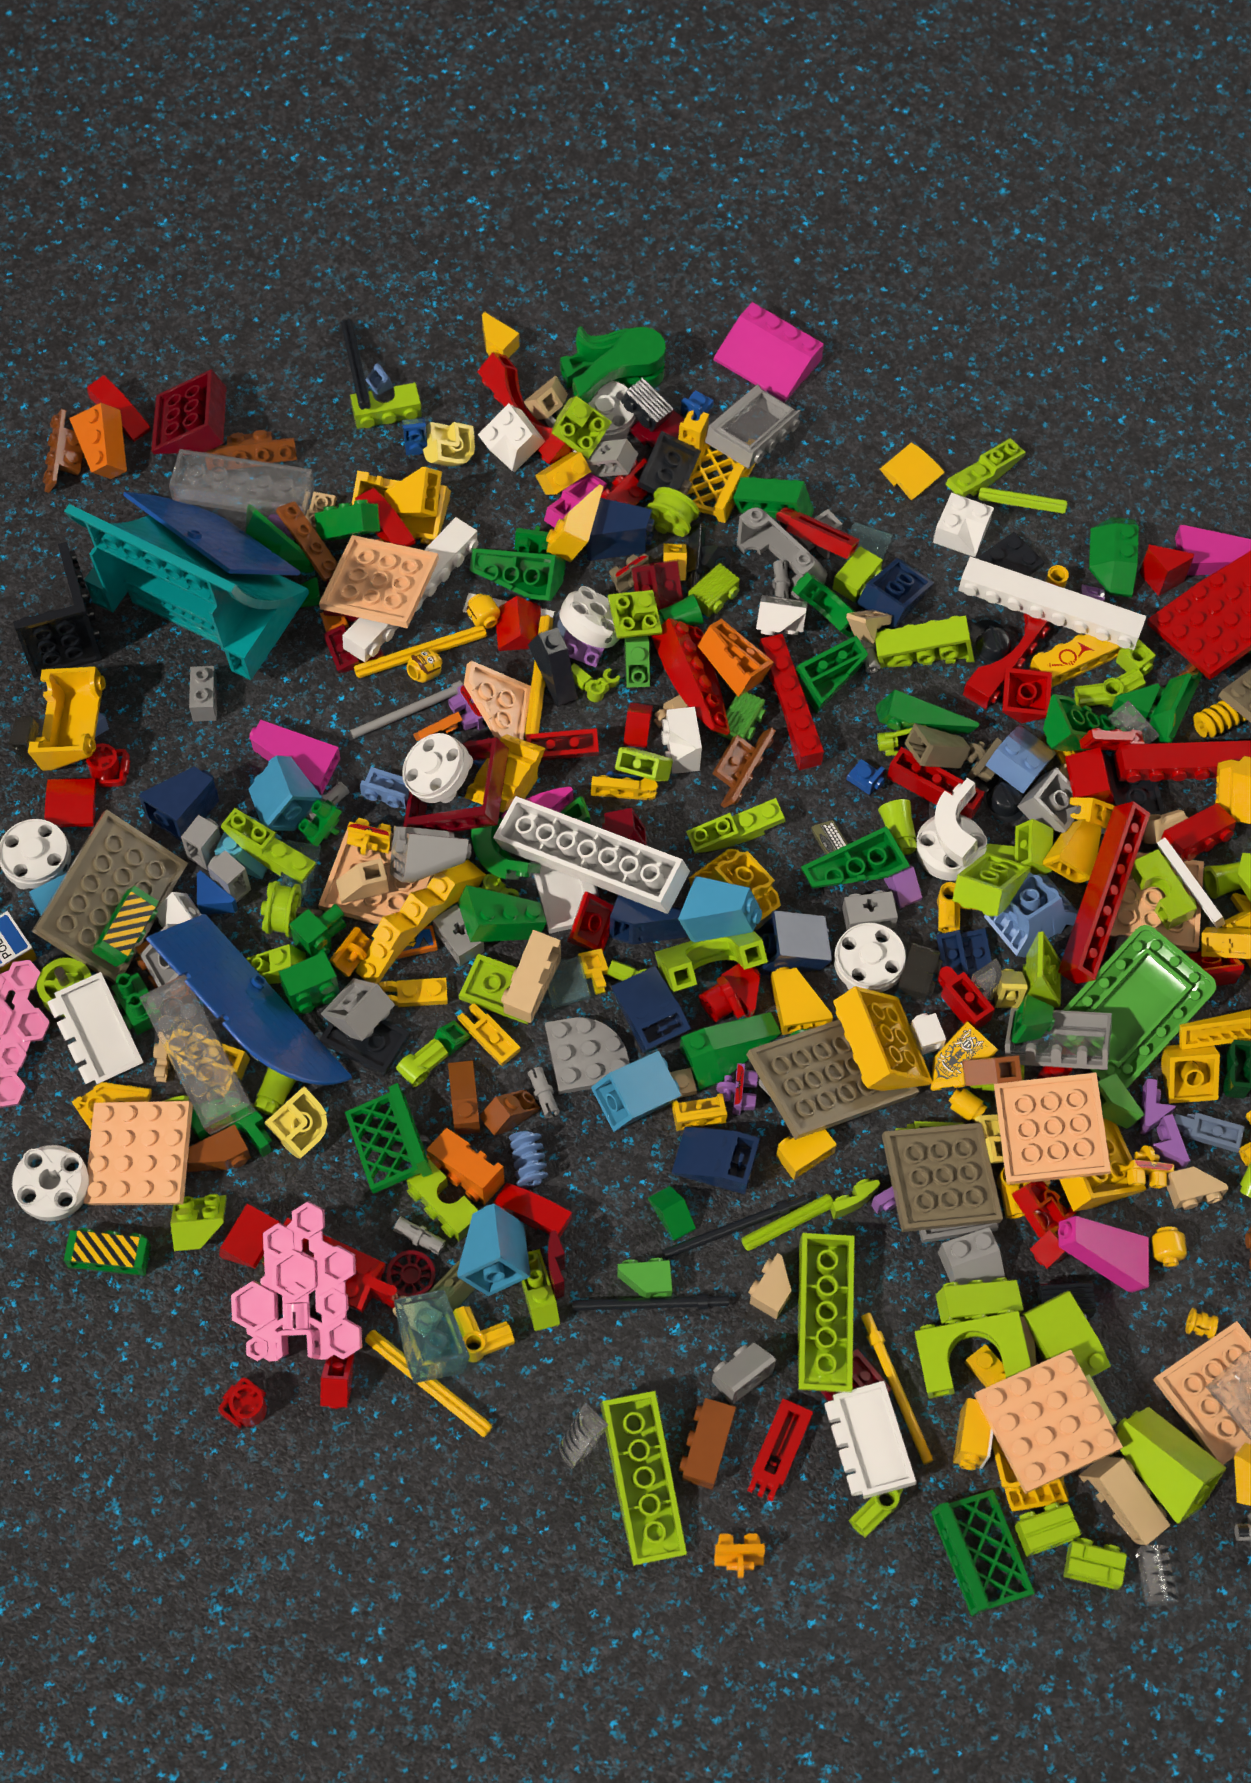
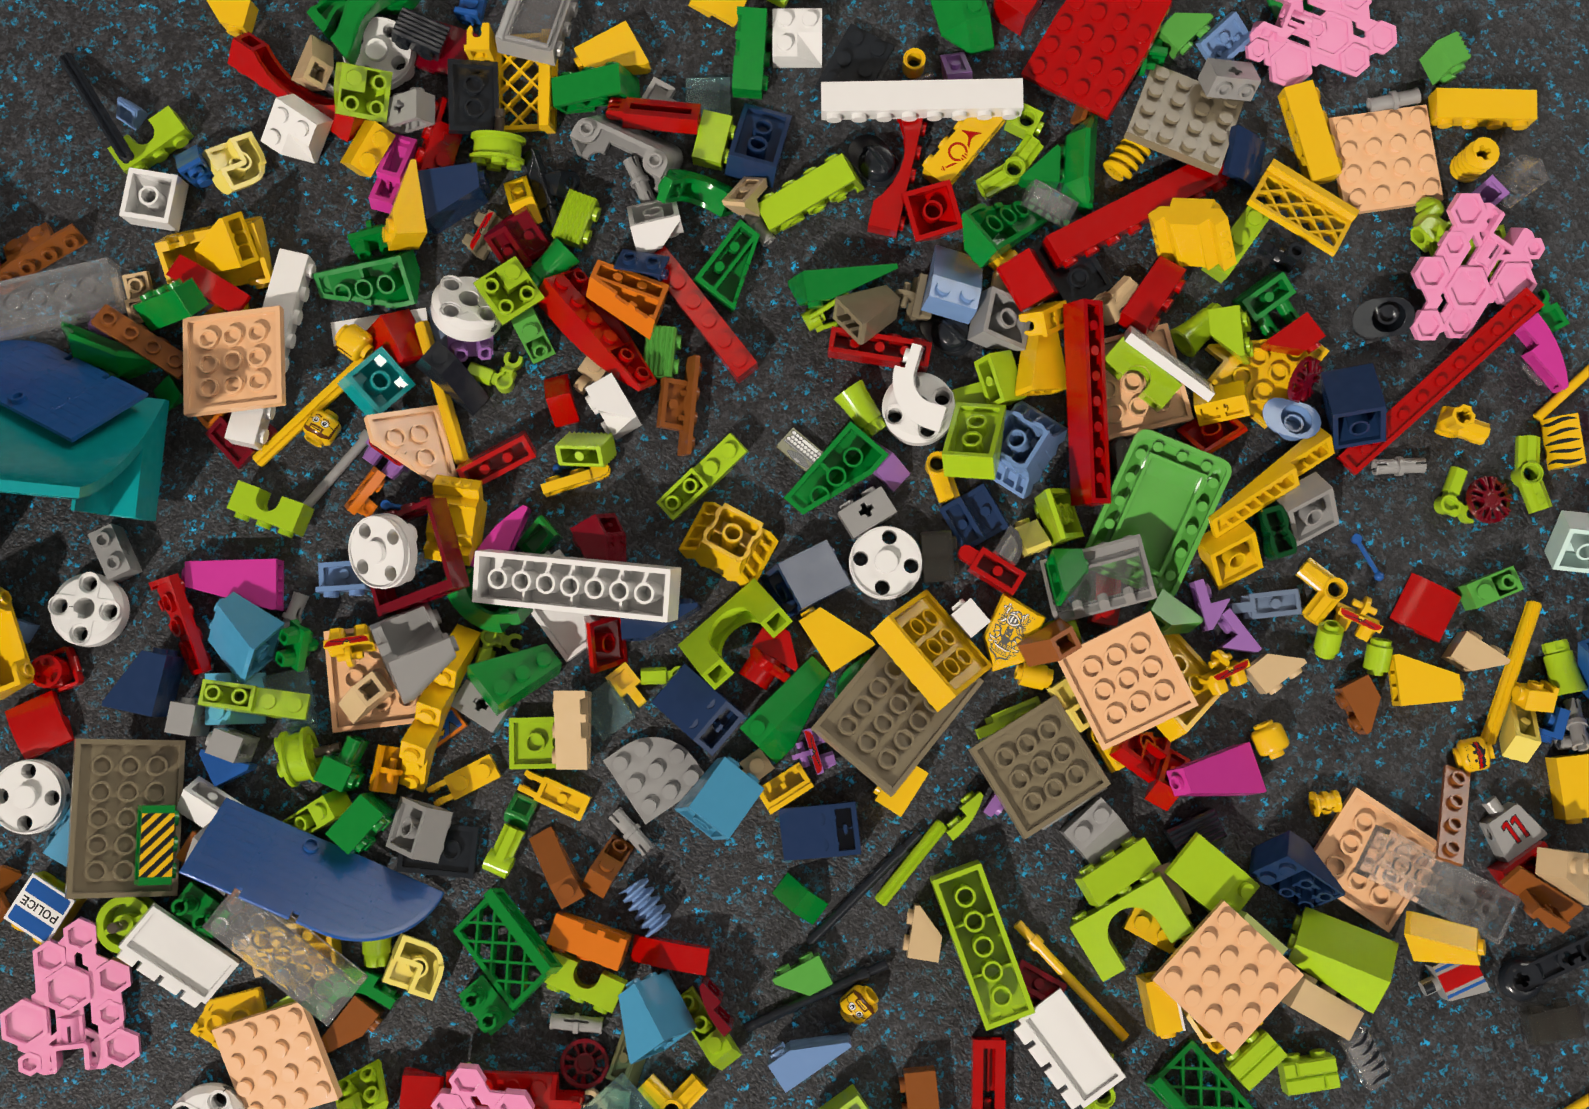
camera: 15 degrees left, 20 degrees up
(159, 729) = (89, 610): none -> white piece
(234, 762) = (182, 622): none -> red wing
(348, 1184) = (486, 1005): none -> green brick
(363, 720) = (252, 502): none -> lime arch
(369, 445) = (154, 199): none -> white slope
(488, 644) = (376, 383): none -> teal slope
(617, 1344) = (803, 1057): none -> medium blue slope
(687, 1324) = (858, 1004): none -> yellow head
(718, 910) = (723, 589): dark azure slope -> none
(743, 1372) = (928, 1032): light grey slope -> none
(765, 639) = (643, 263): none -> dark blue hinge
(806, 470) = (613, 45): none -> yellow slope
(866, 777) = (808, 365): blue bracket -> none
(919, 520) = (751, 53): none -> green wedge
(1110, 739) = (1038, 232): red hinge -> none
(1149, 1368) = (1294, 871): none -> dark blue slope

